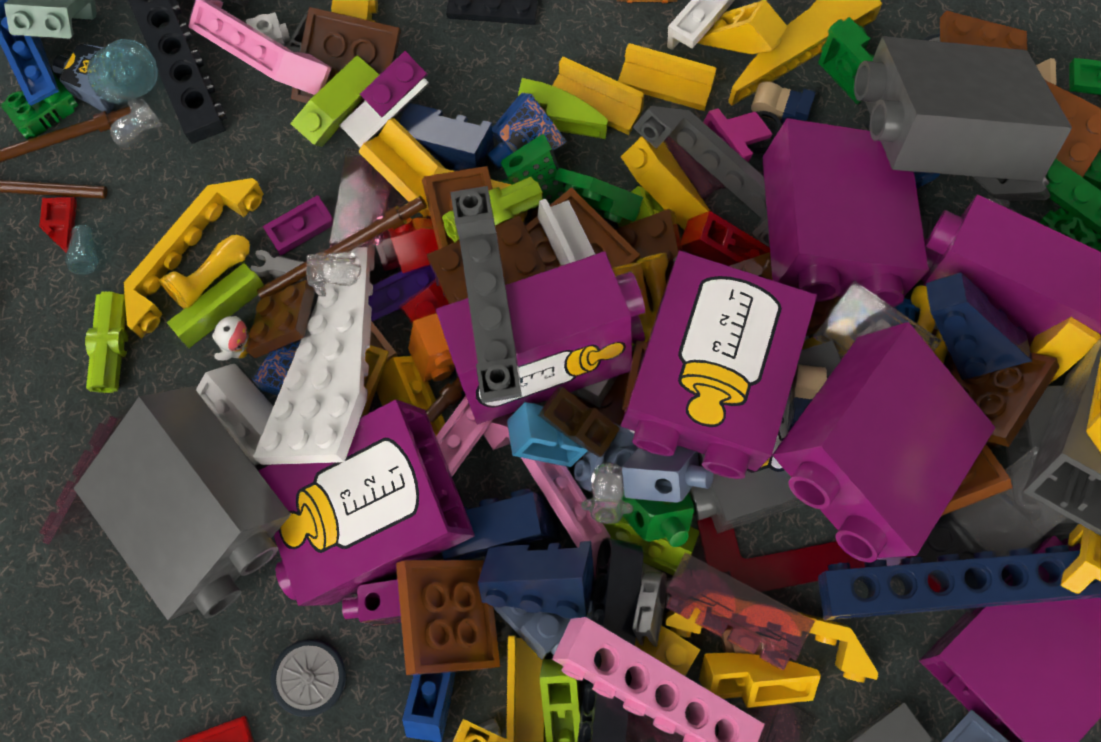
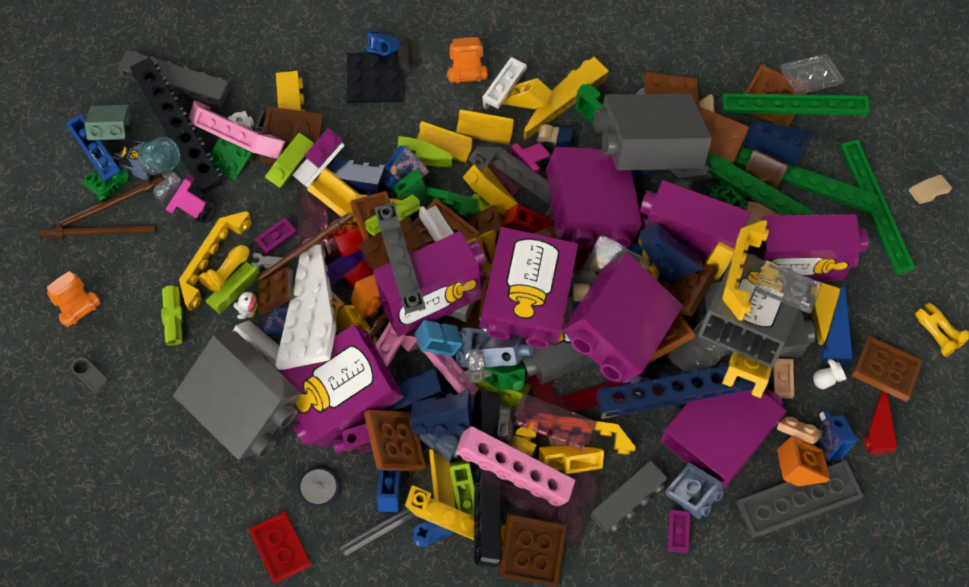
camera: 10 degrees left, 5 degrees down
(58, 219) = (129, 248): red tile -> none
(68, 493) = (171, 387): clear pink windscreen -> none
(81, 252) = (148, 266): clear light blue cone -> none
(164, 155) = (191, 203): none -> dark pink piece
(243, 88) = (230, 157): none -> green hinge
(332, 268) = (305, 258): clear animal -> none
(578, 422) = (455, 328): dark brown slope -> none

